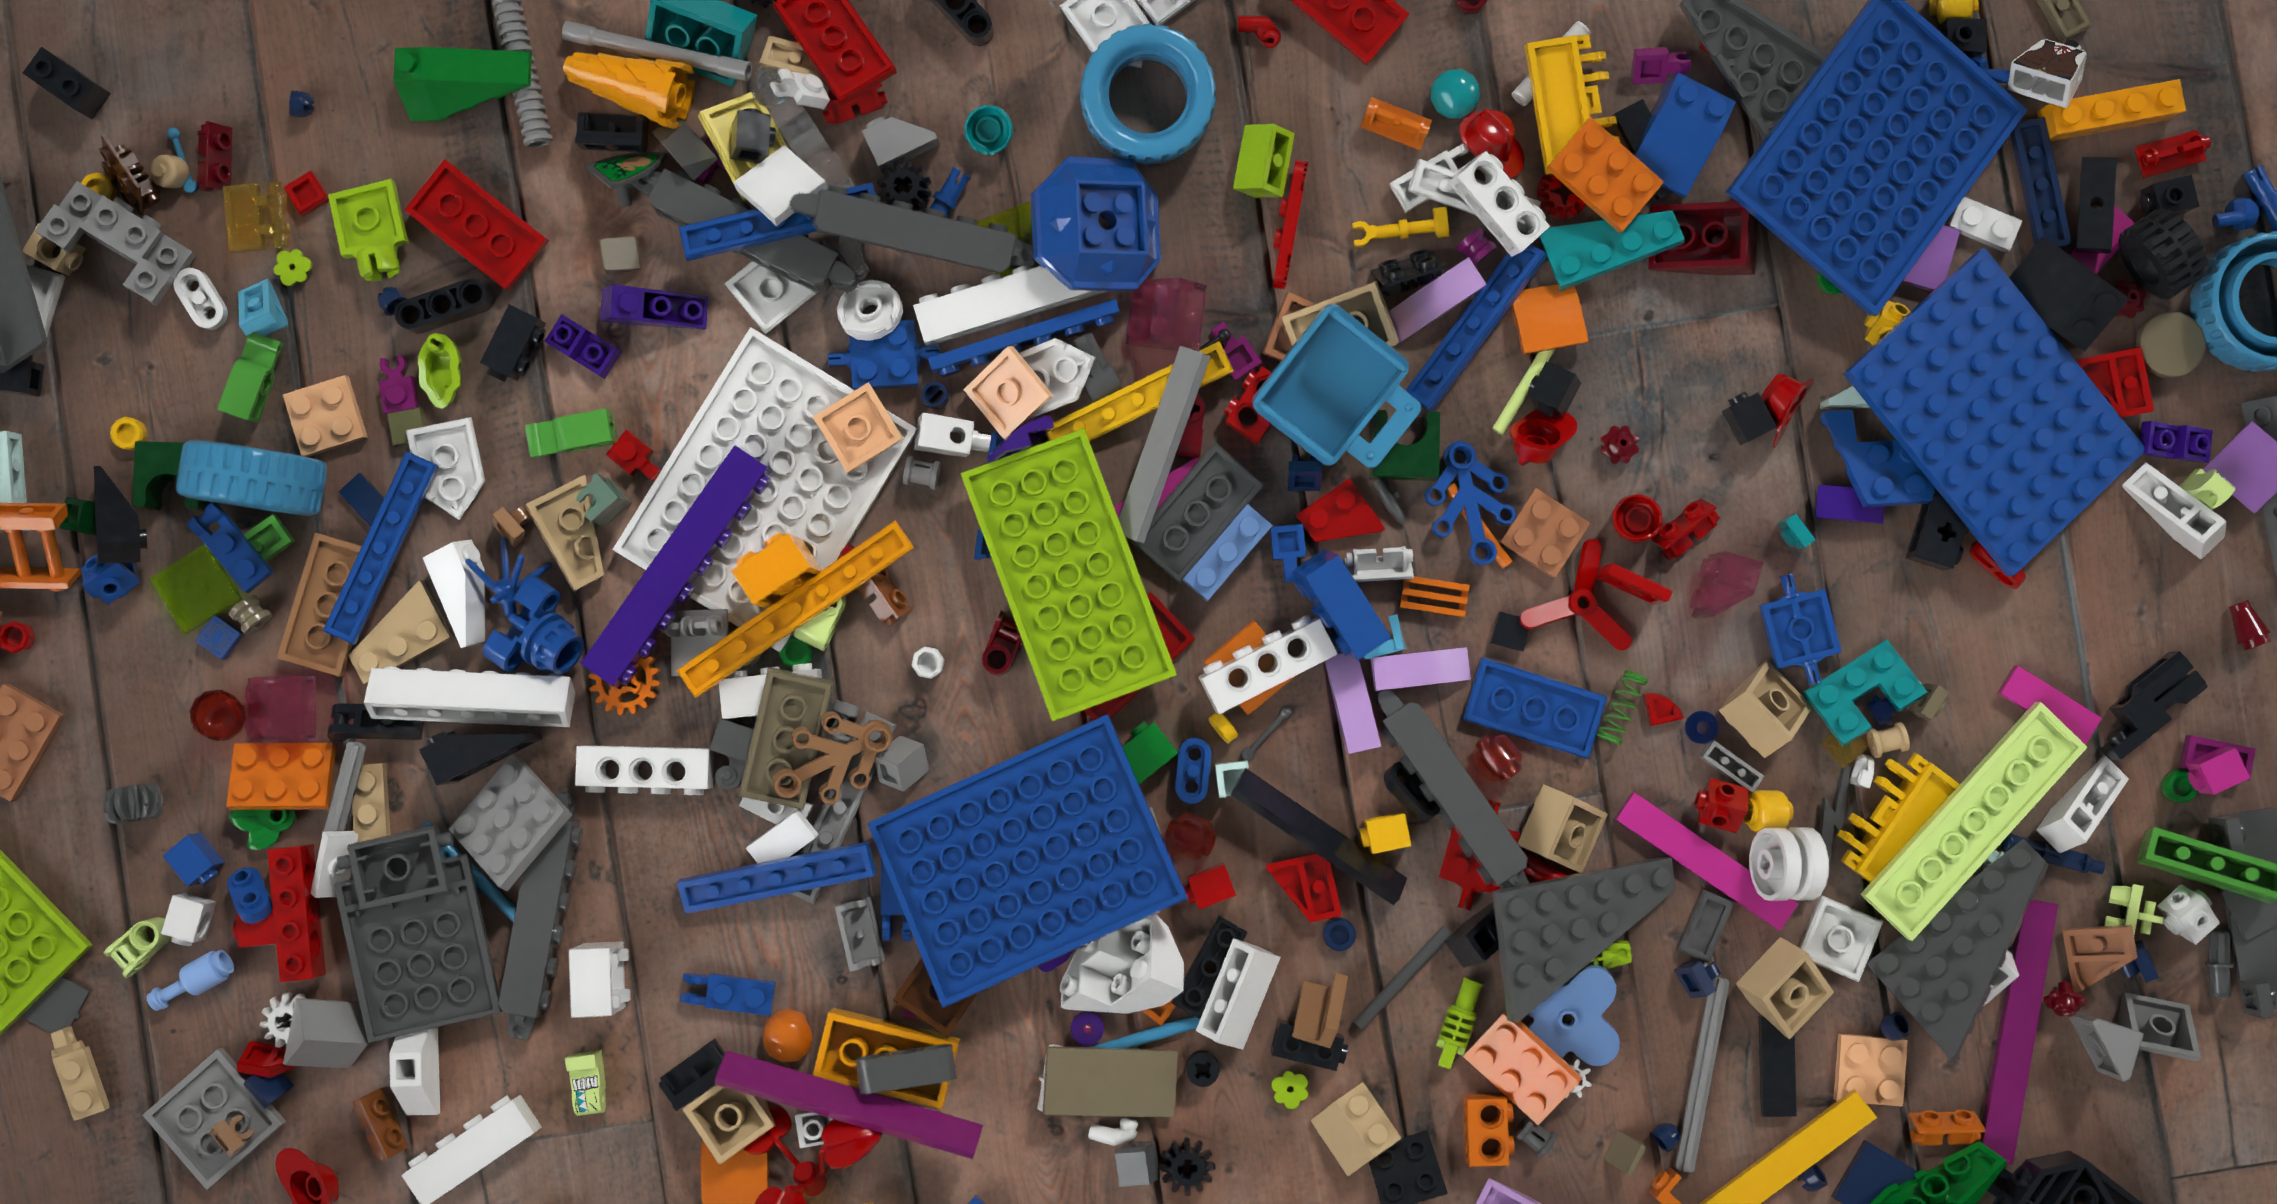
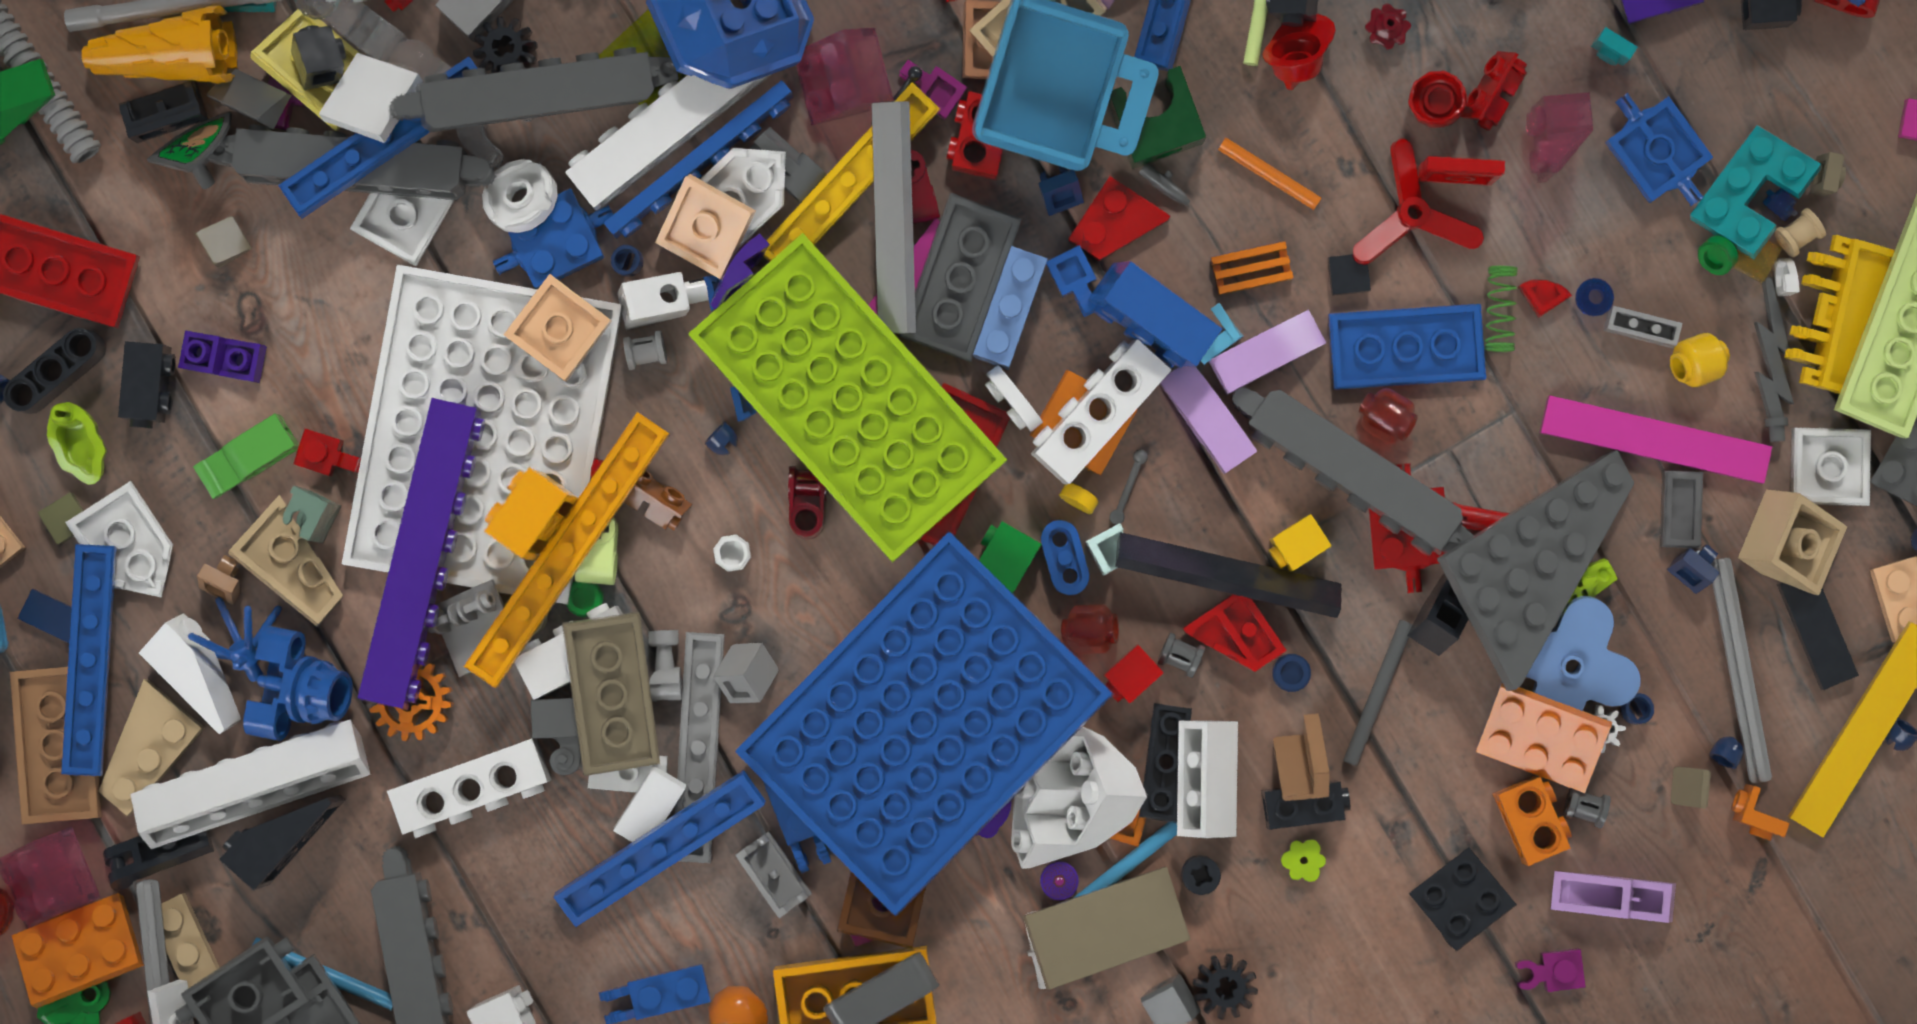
camera: 25 degrees left, 0 degrees up
(398, 391) = (40, 483): magenta plate -> none
(510, 822) = (346, 901): light grey plate -> none
(652, 307) = (282, 285): dark purple slope -> none
(837, 755) = (674, 691): medium nougat plant -> none
(946, 198) = (556, 35): blue pin -> none
(955, 566) = (720, 438): none -> dark blue hinge
(1114, 1136) = (1132, 985): white arm -> none
(1203, 640) = (1003, 388): none -> white plate
(1255, 885) = (1181, 655): none -> dark grey bush
(1356, 1129) = (1391, 874): tan slope -> none
(1392, 565) = (1194, 252): white hinge -> none
(1406, 790) = (1306, 490): black plate -> none
(1459, 1023) = (1457, 717): lime hinge -> none
(1469, 498) = (1248, 147): blue plant -> none
(1544, 533) = (1344, 153): nougat plate -> none
(1562, 828) = (1487, 464): tan slope -> none
(1611, 1073) = (1642, 706): none -> dark blue hinge
(1722, 805) = (1648, 372): red brick -> none
(1766, 709) = (1656, 251): tan slope -> none
(1788, 863) = (1744, 406): white wheel -> none
(1815, 732) = (1718, 255): none -> green tile

